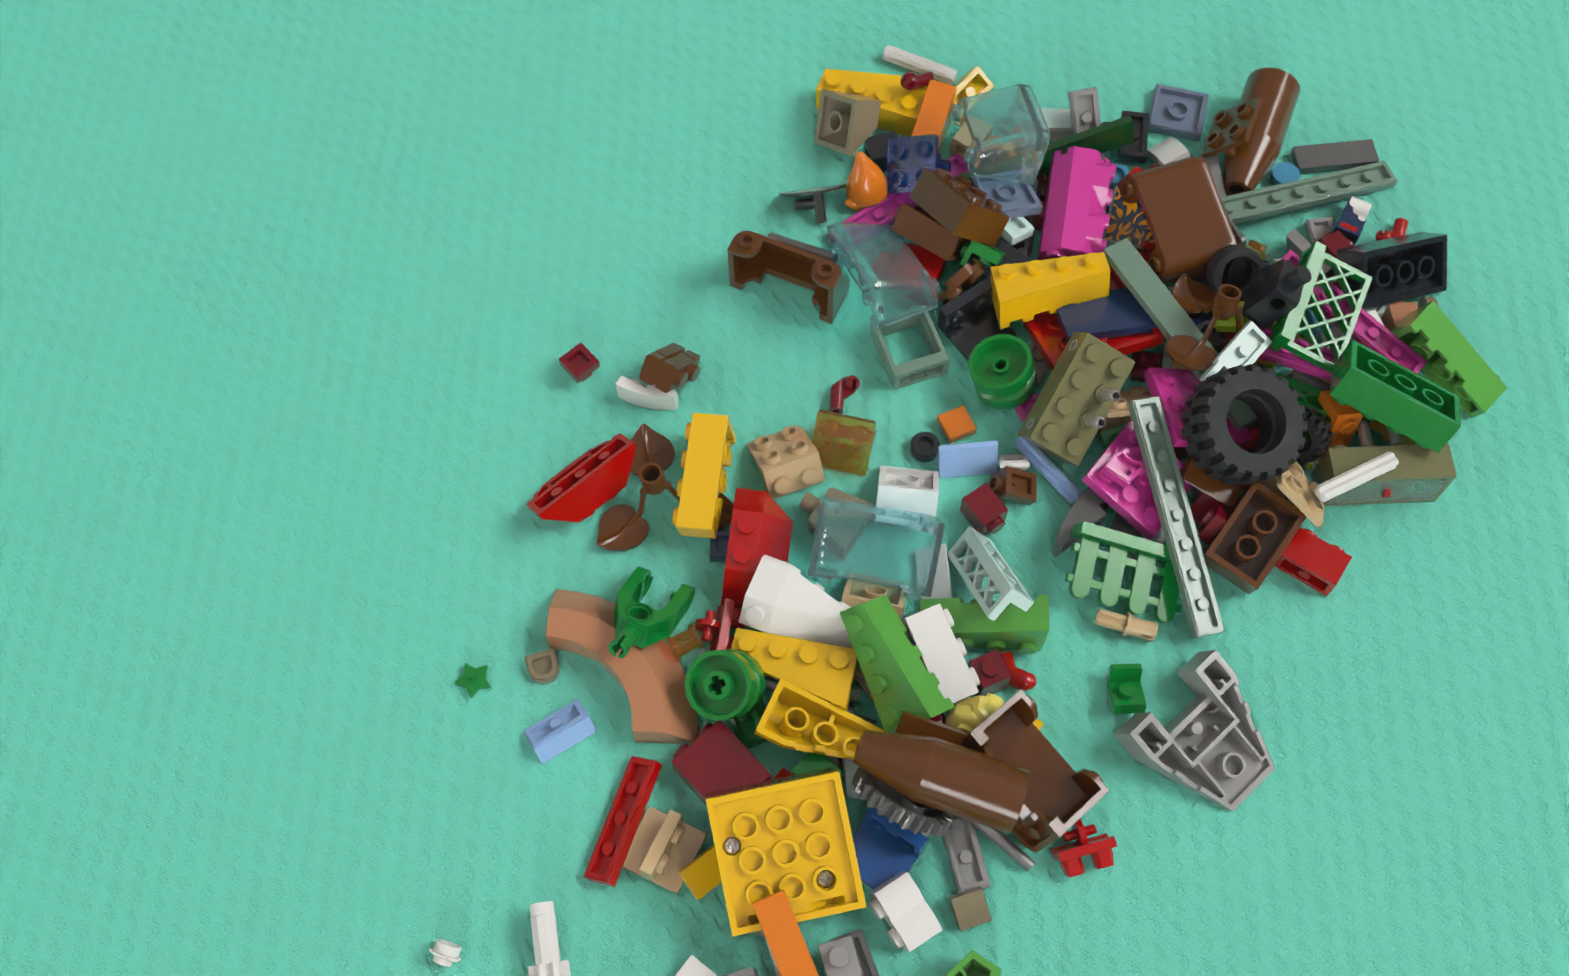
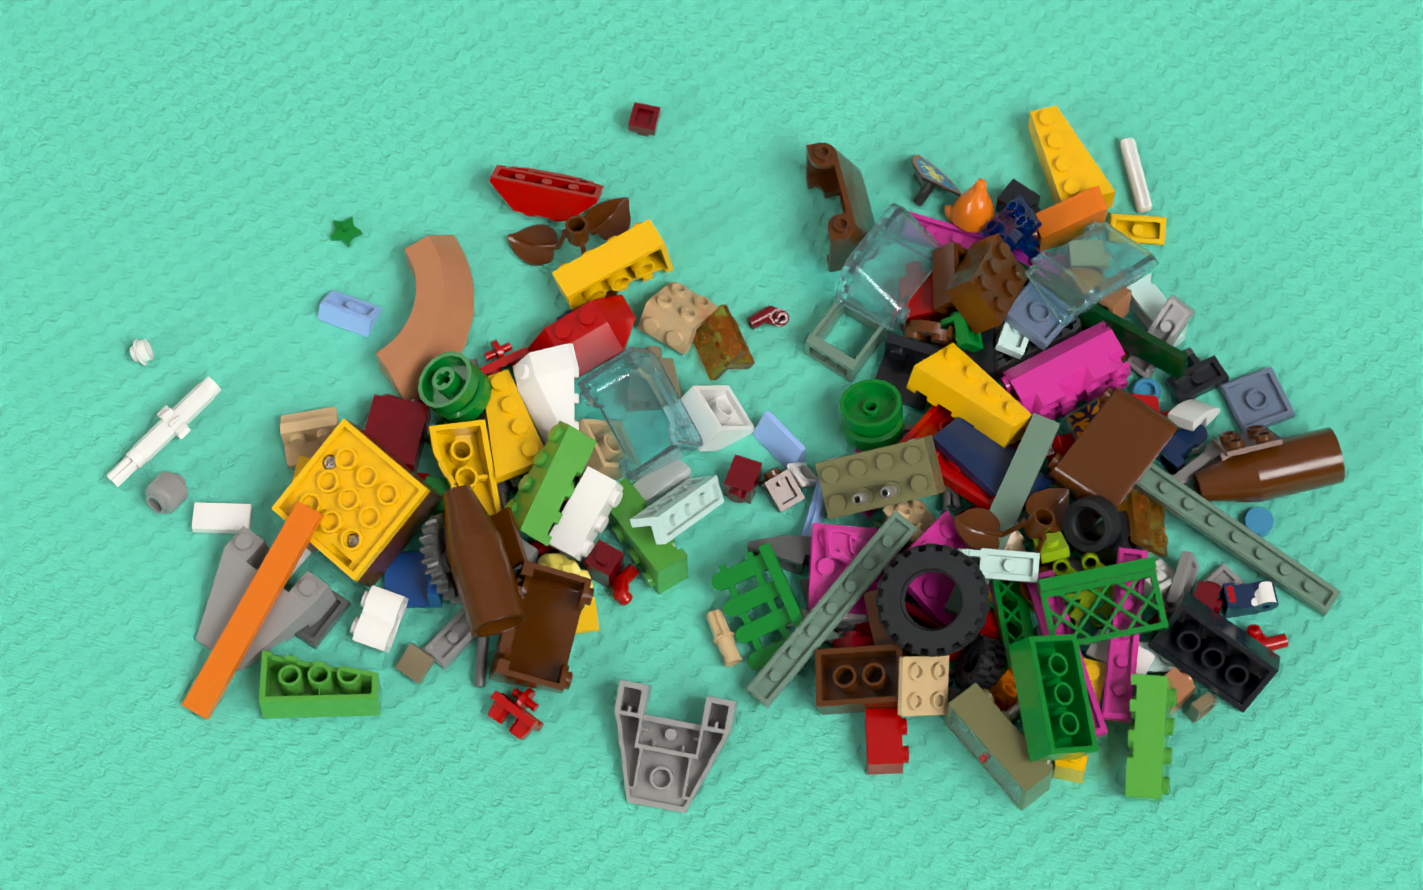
camera: 55 degrees right, 0 degrees up
(543, 666) = (389, 268): dark tan tile -> none
(622, 821) = (313, 396): red tile -> none
(639, 623) = (457, 303): green piece -> none
(650, 397) = (658, 185): white slope -> none
(670, 367) = (686, 181): reddish brown brick -> none
(684, 642) = (473, 345): clear orange bush -> none
(806, 247) = (872, 198): flat silver bar -> none
(845, 120) = (1019, 153): dark tan slope -> none
(914, 81) = (1087, 172): dark red arm -> none
(924, 446) = (770, 401): black tile -> none
(956, 424) = (807, 416): orange tile -> none
(1126, 689) = (667, 668): green bracket -> none
(1240, 238) = (1156, 474): flat silver hinge -> none
(1274, 292) = (1081, 554): black torso -> none
(1334, 156) = (1313, 550): dark grey tile -> none
(1356, 476) = (960, 713): white axle -> none

